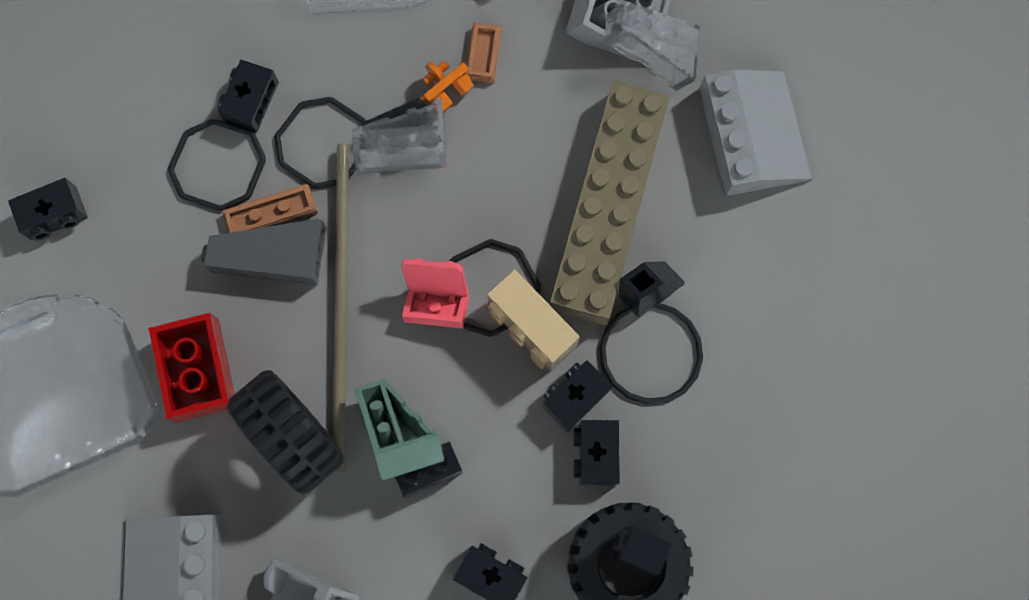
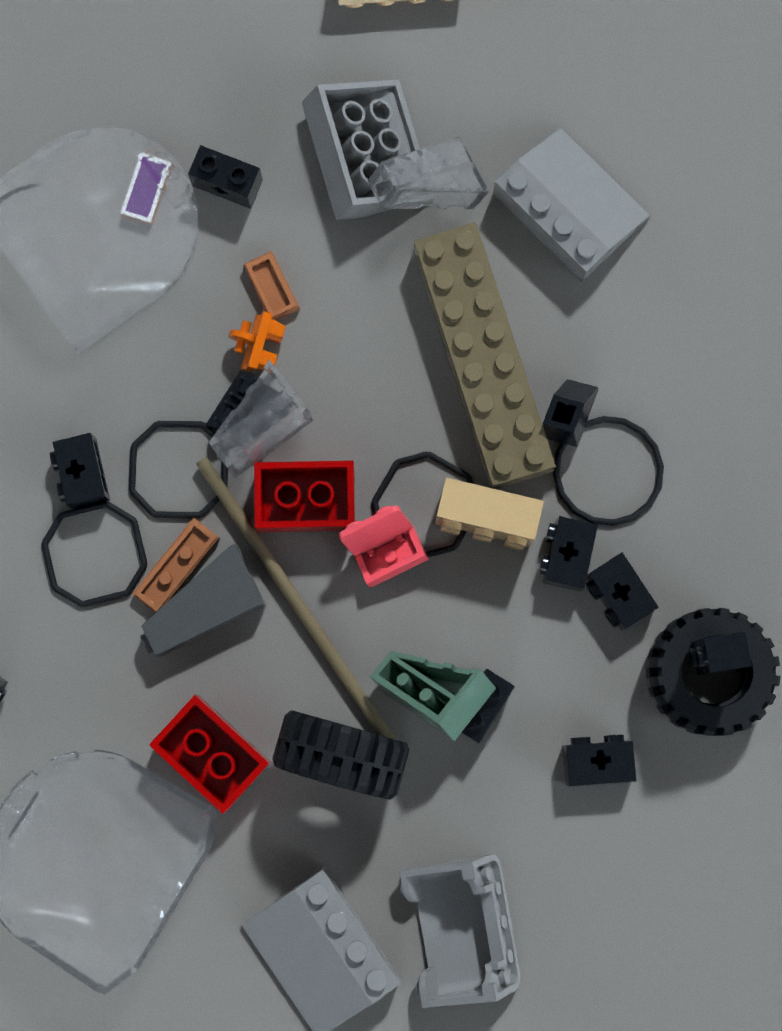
camera: 30 degrees left, 5 degrees up
(399, 217) = (304, 496): none -> red brick

